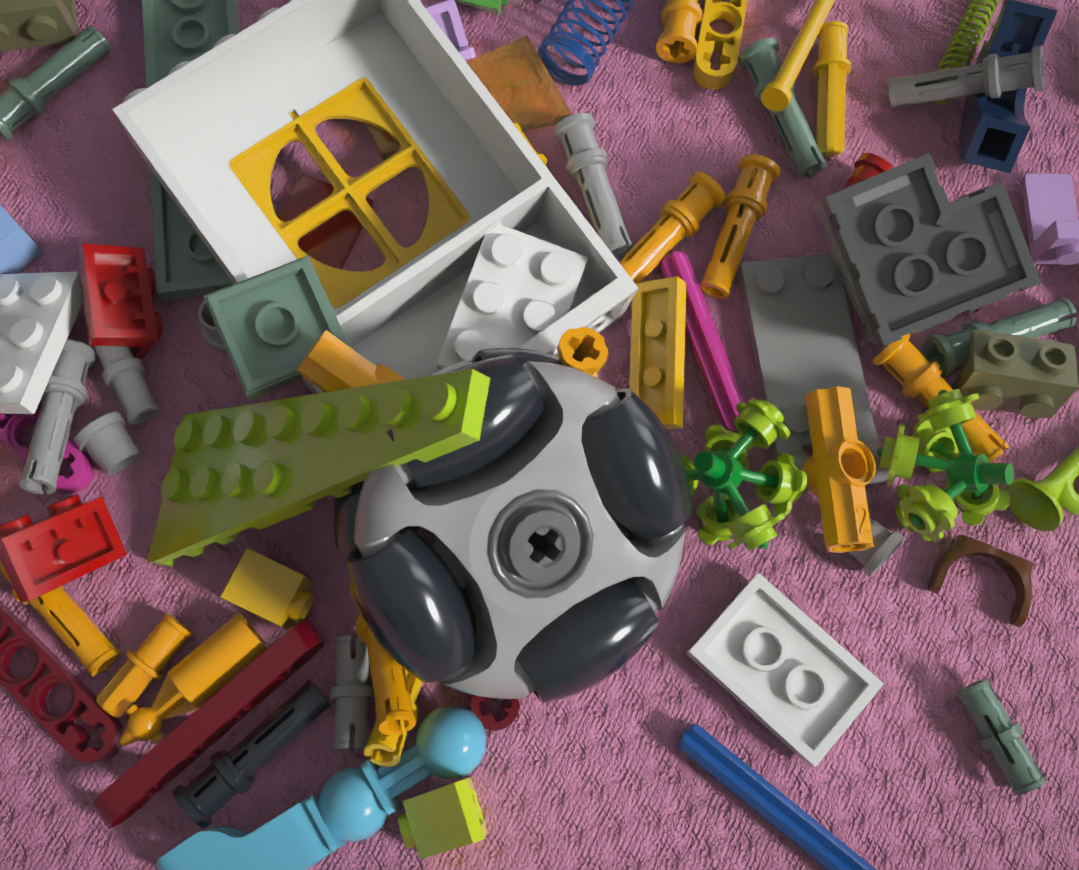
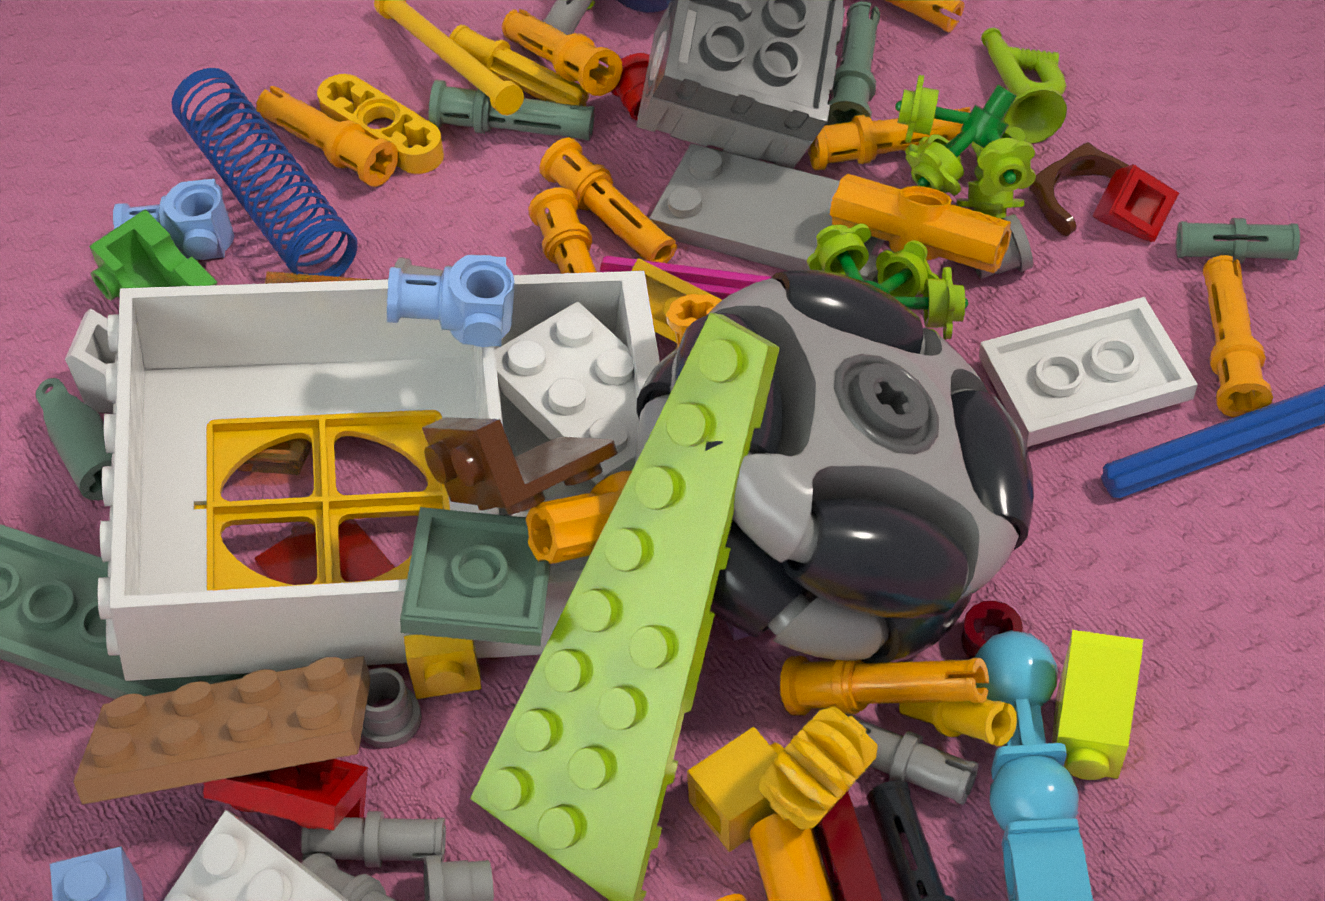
camera: 55 degrees left, 20 degrees down
(125, 238) = (225, 729): none -> medium nougat plate
(261, 642) = (817, 767): none -> yellow gear
(352, 307) = (481, 470): none -> reddish brown bracket
(499, 168) = (467, 299): none -> light blue connector
(861, 118) = (572, 55): none -> light orange pin
(873, 785) = (1237, 355): none -> light orange pin
(990, 631) = (1135, 203): none -> red slope
(1018, 374) = (901, 53): olive bracket -> none

